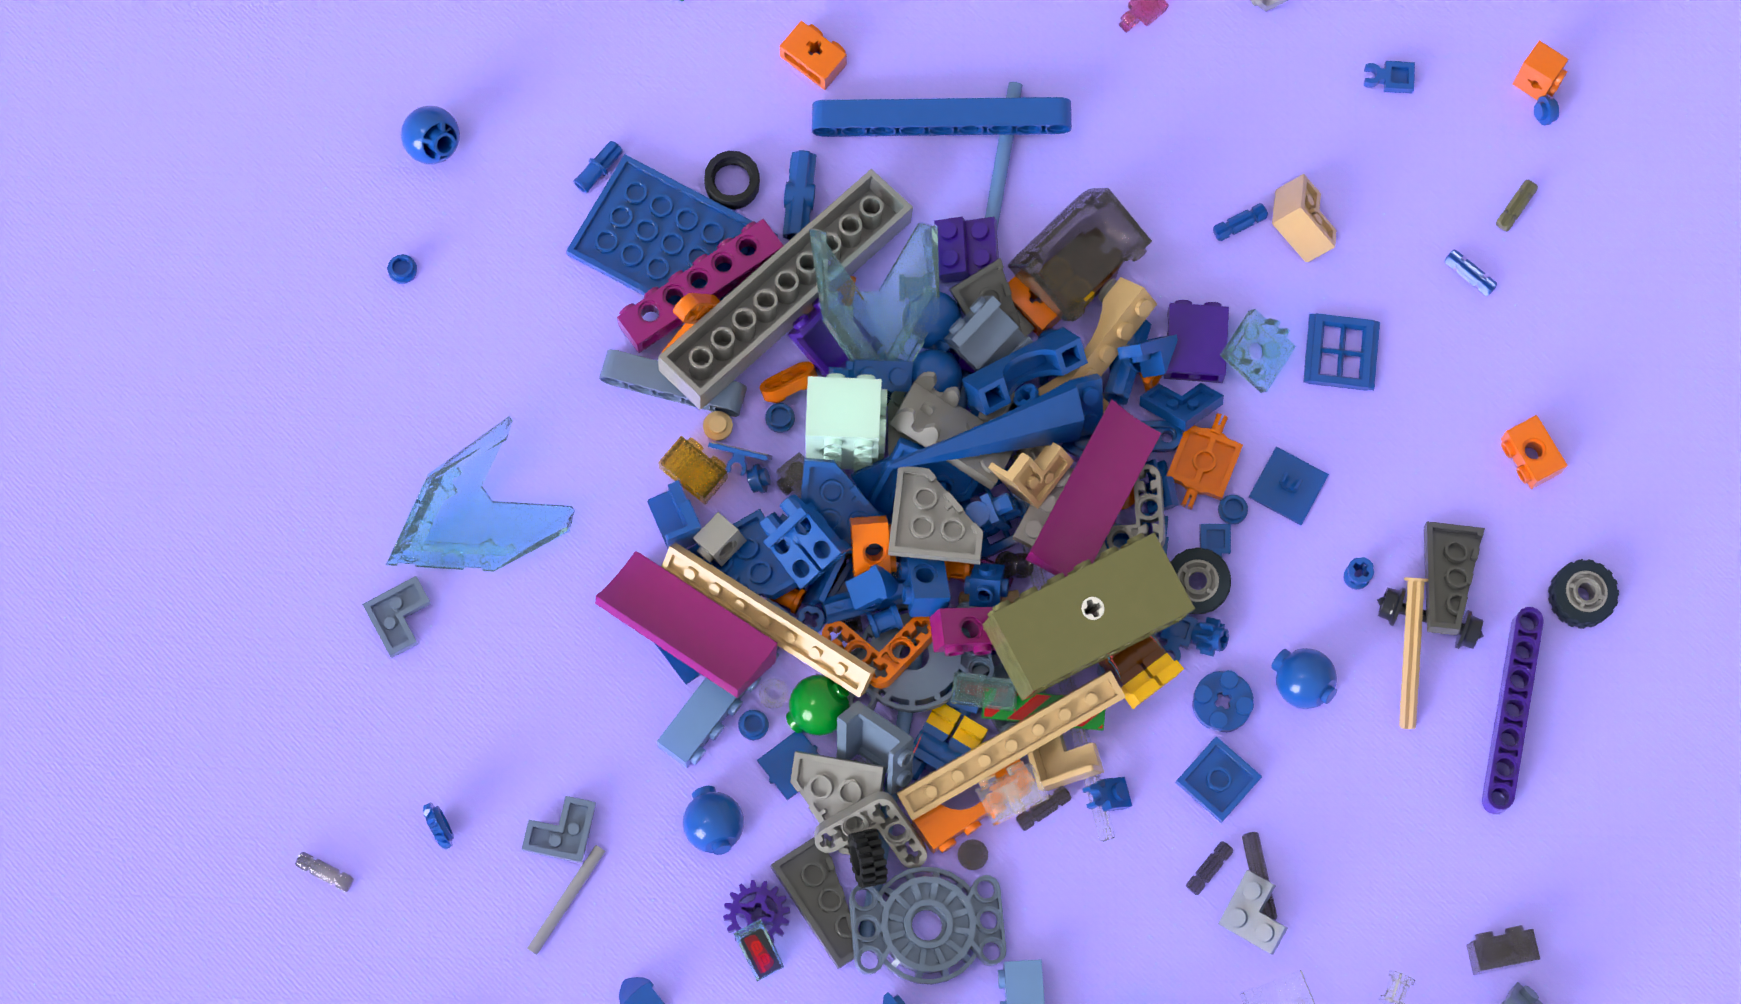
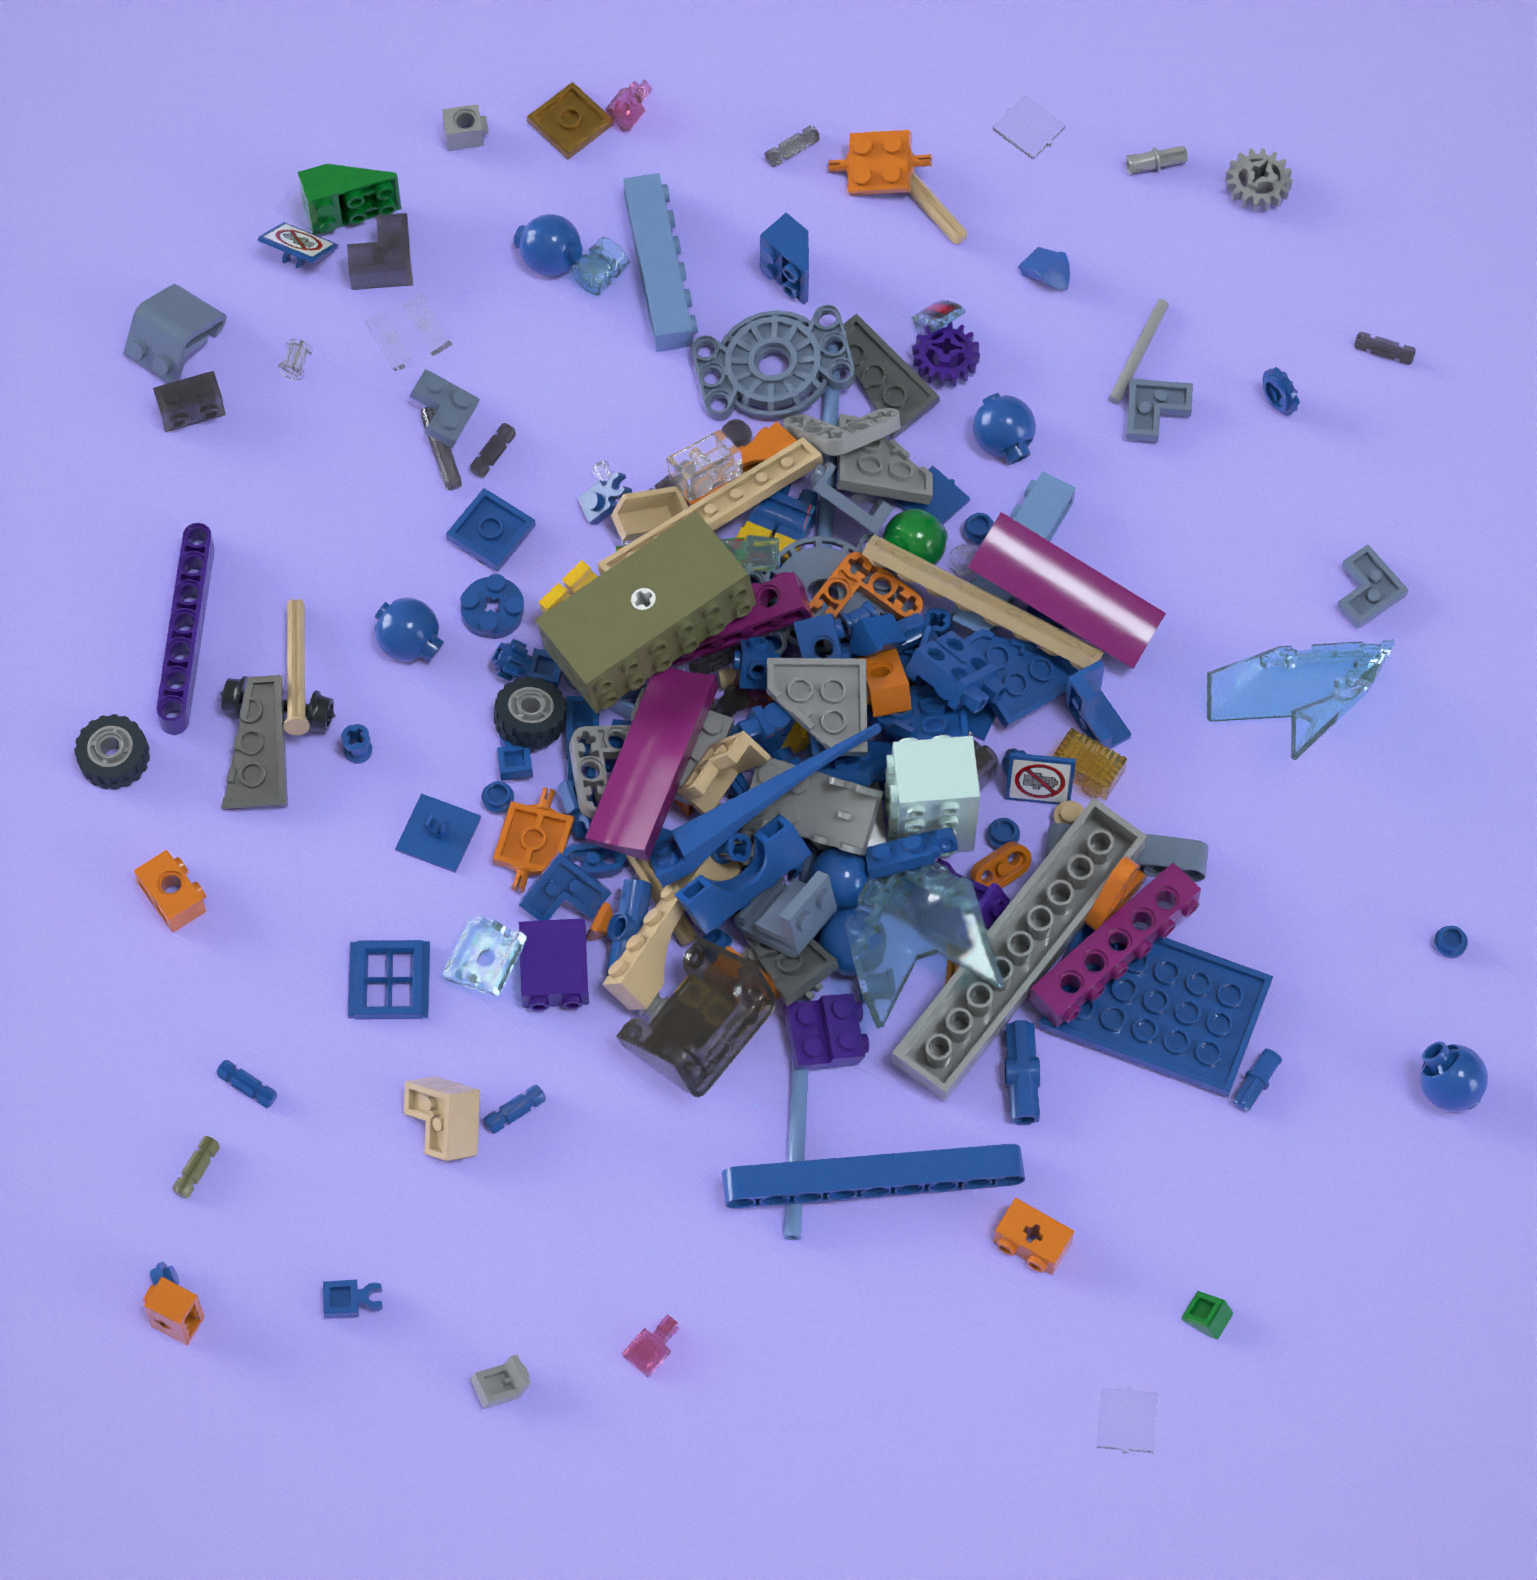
camera: 175 degrees right, 10 degrees down
(718, 540) = (1046, 681): light grey brick -> none
(732, 158) = (1106, 1057): black tyre -> none
(867, 858) = (843, 393): black tyre -> none
(1152, 354) = (606, 926): blue slope -> none

